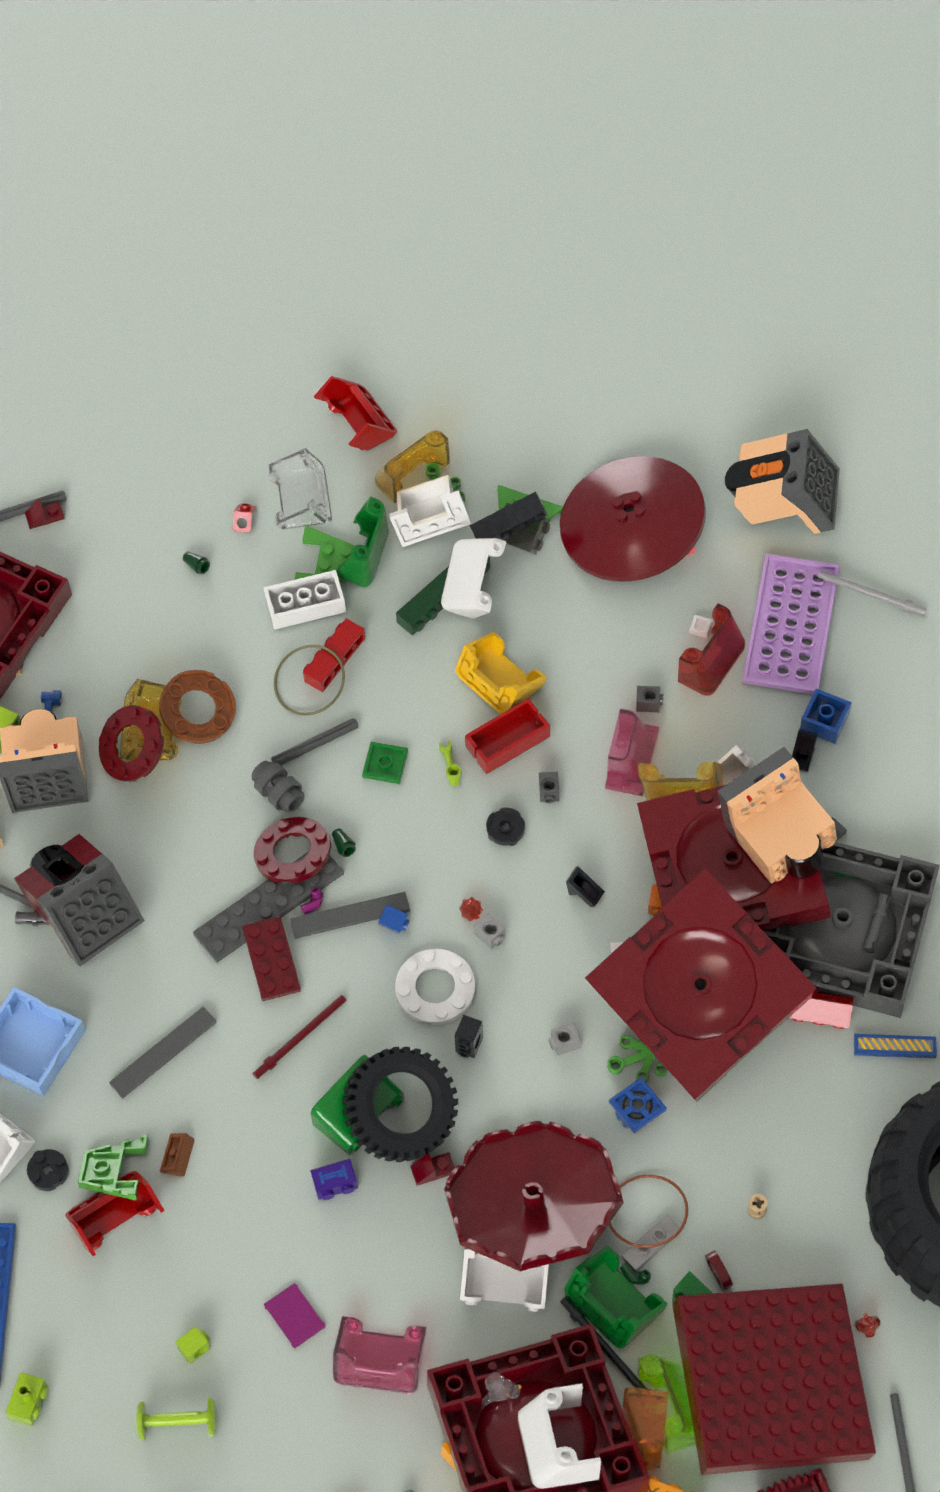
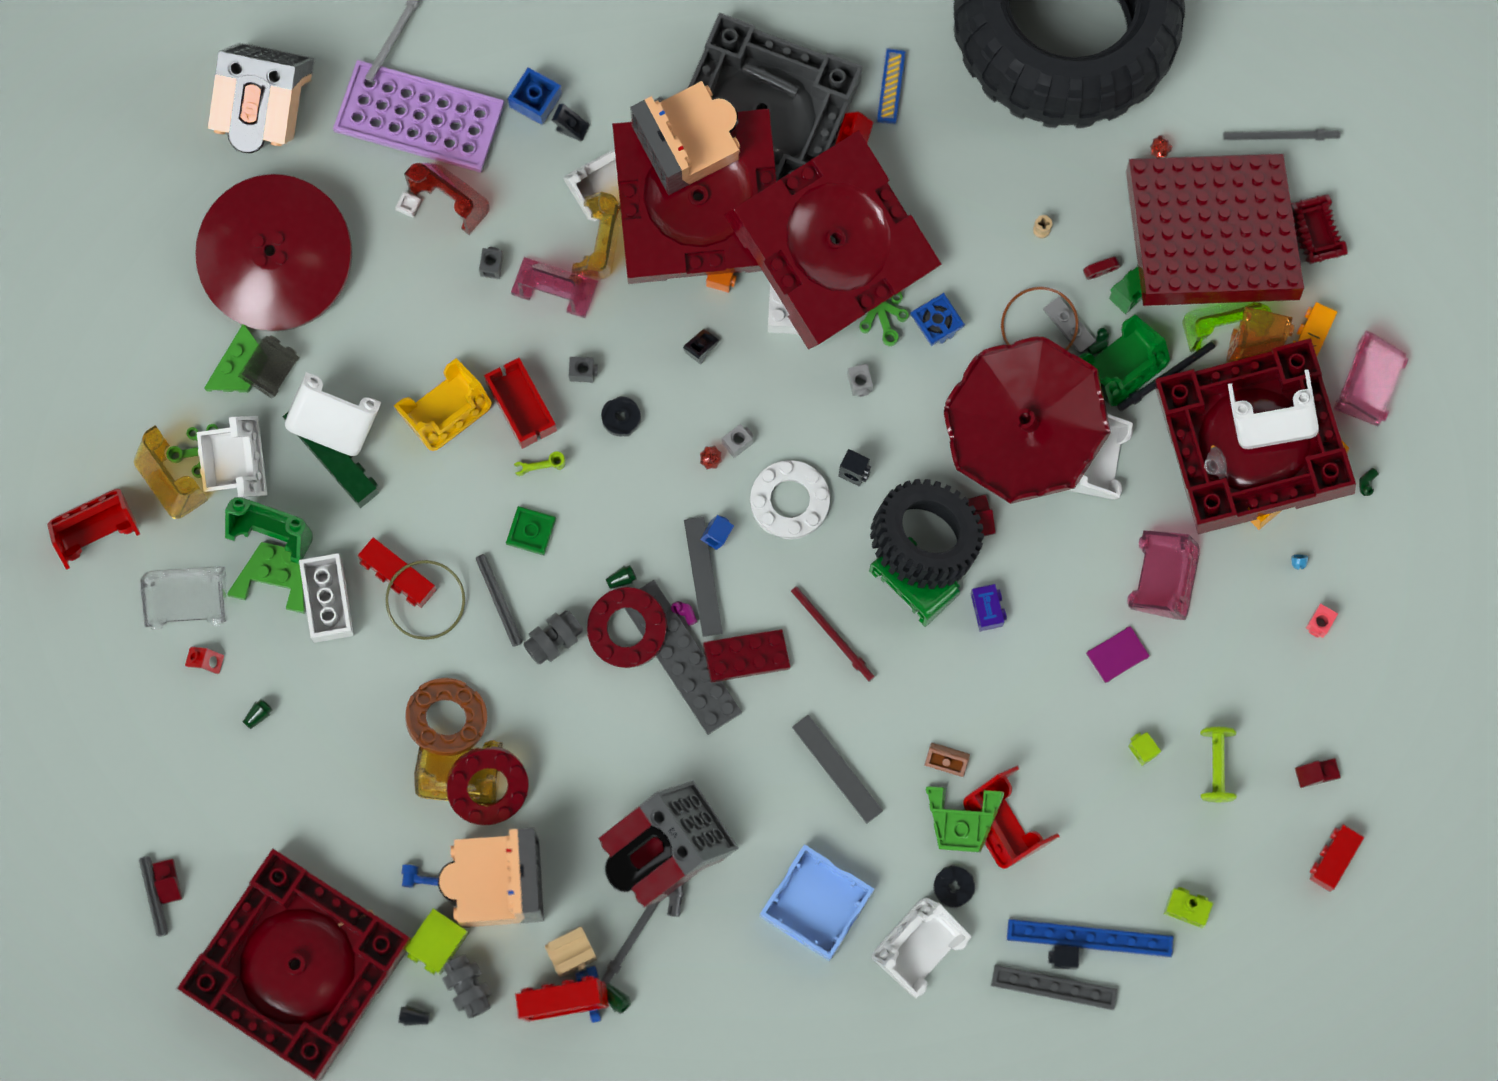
camera: 90 degrees left, 15 degrees up
(510, 518) = (265, 373): black brick -> none

